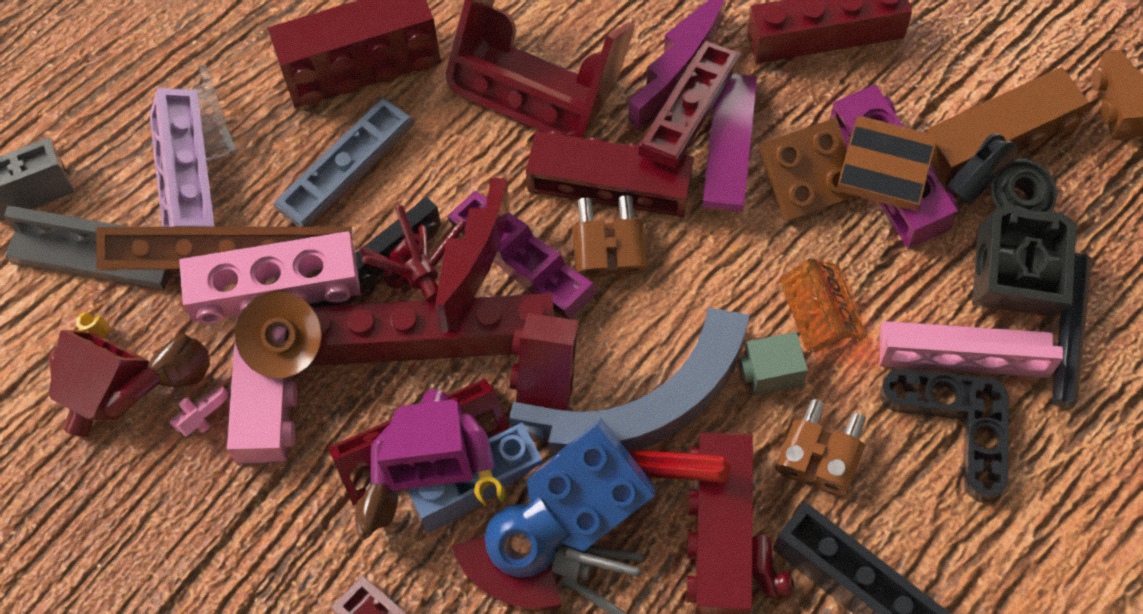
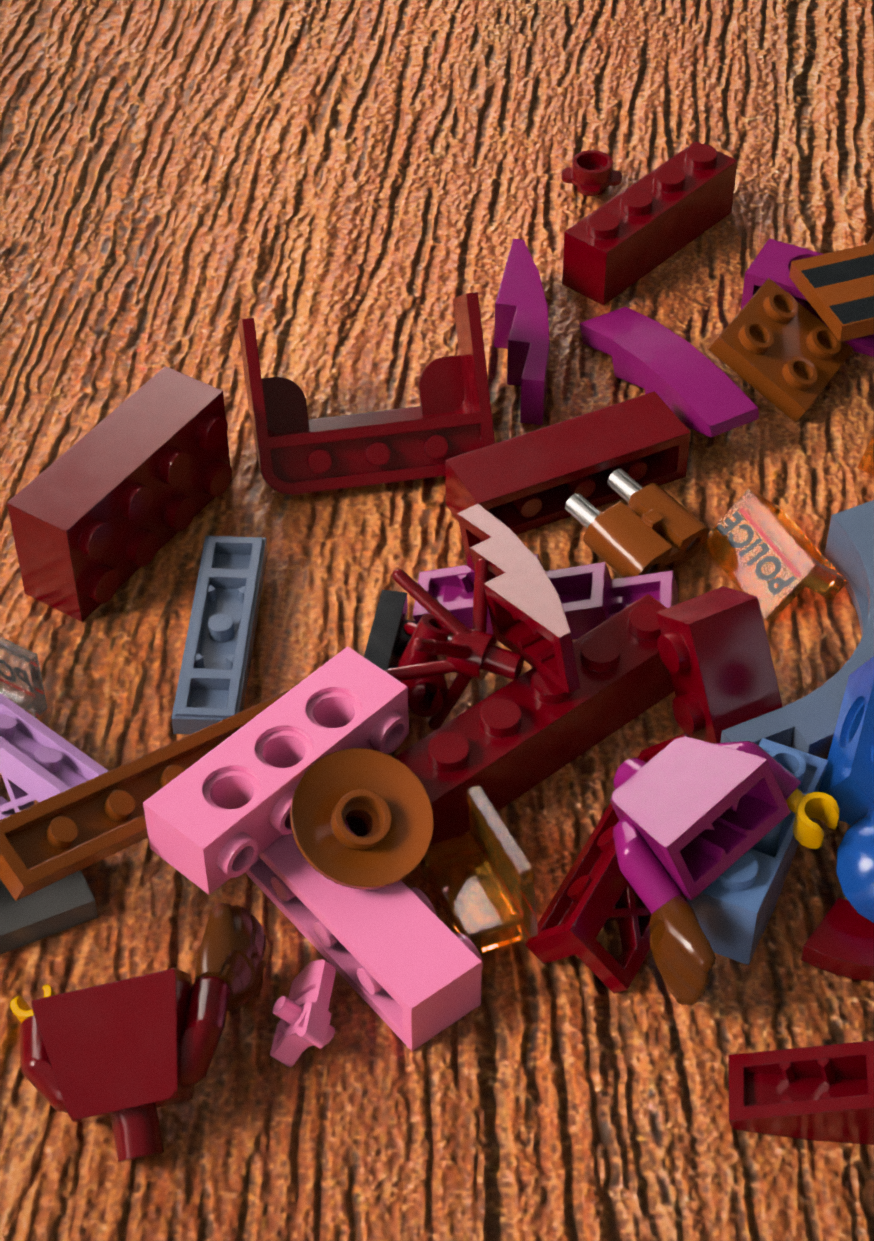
camera: 40 degrees left, 20 degrees down
(330, 400) = (484, 879): none -> clear orange panel
(670, 305) = (769, 555): none -> clear orange panel
(689, 104) = (599, 348): dark red plate -> none

